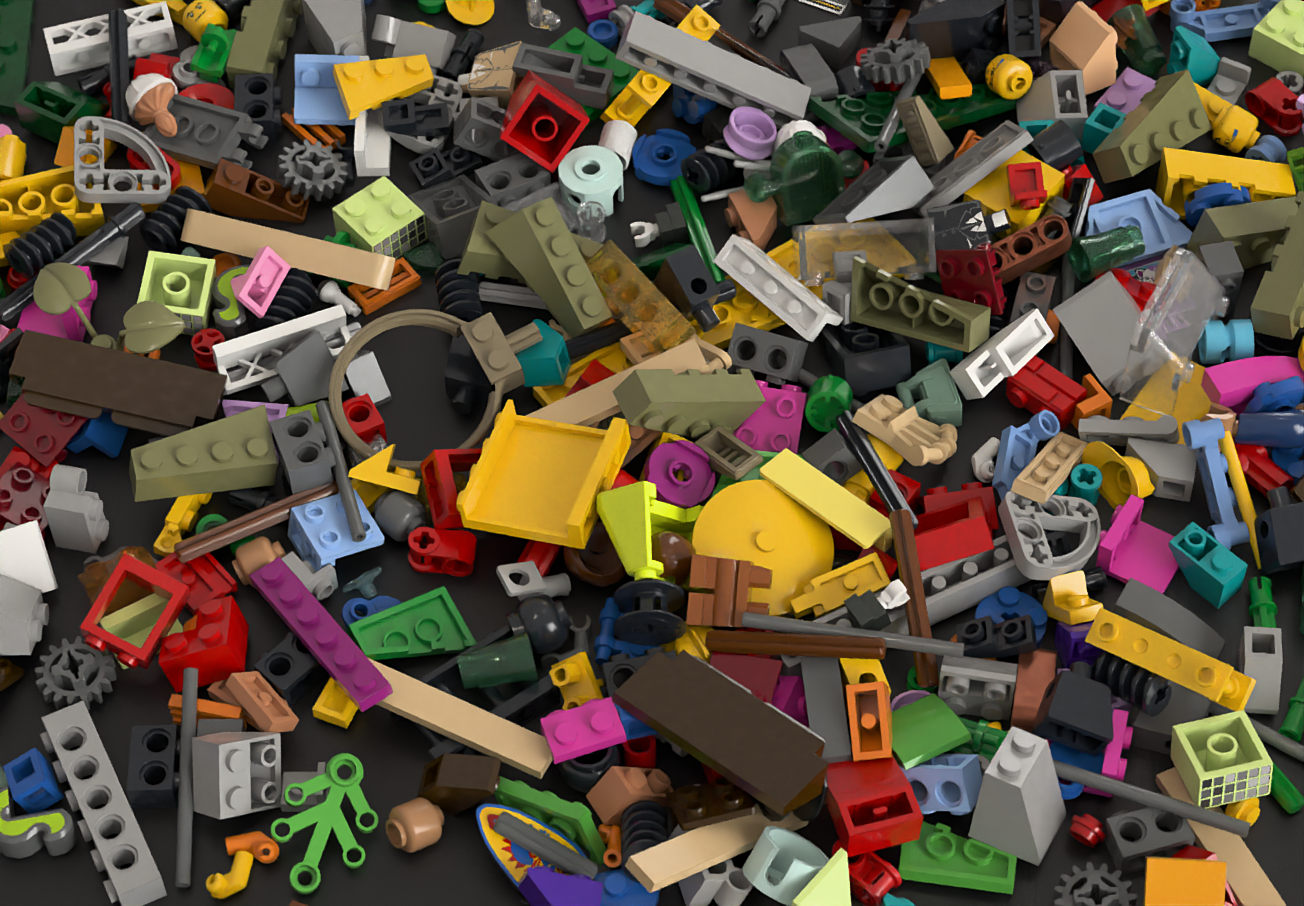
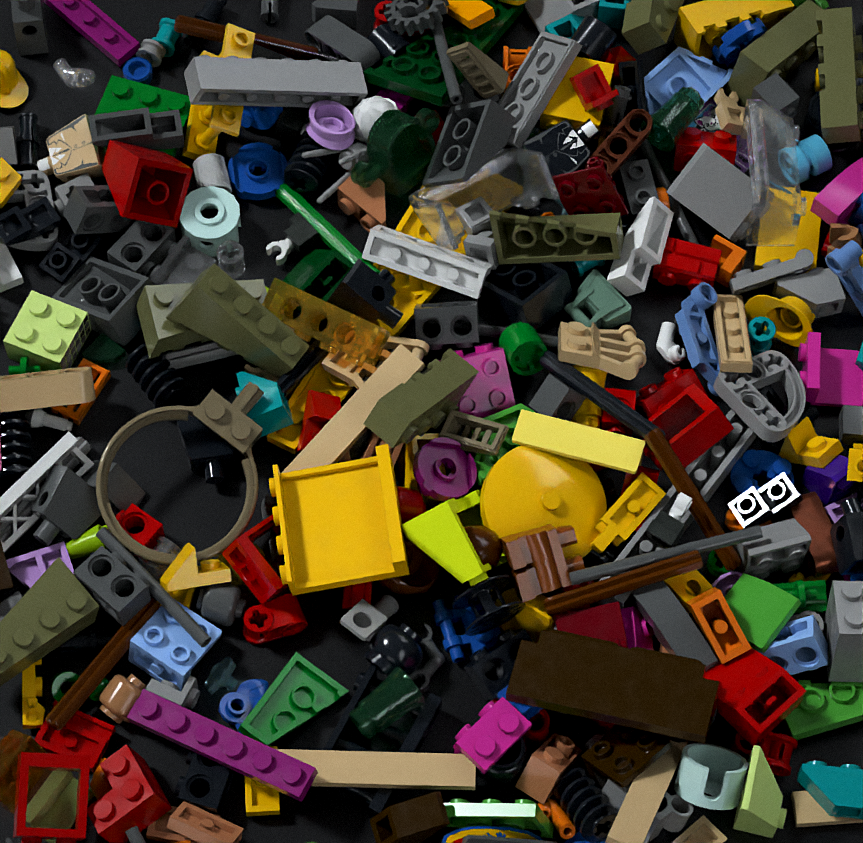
camera: 30 degrees left, 10 degrees up
(576, 681) = (458, 694): yellow hips -> none

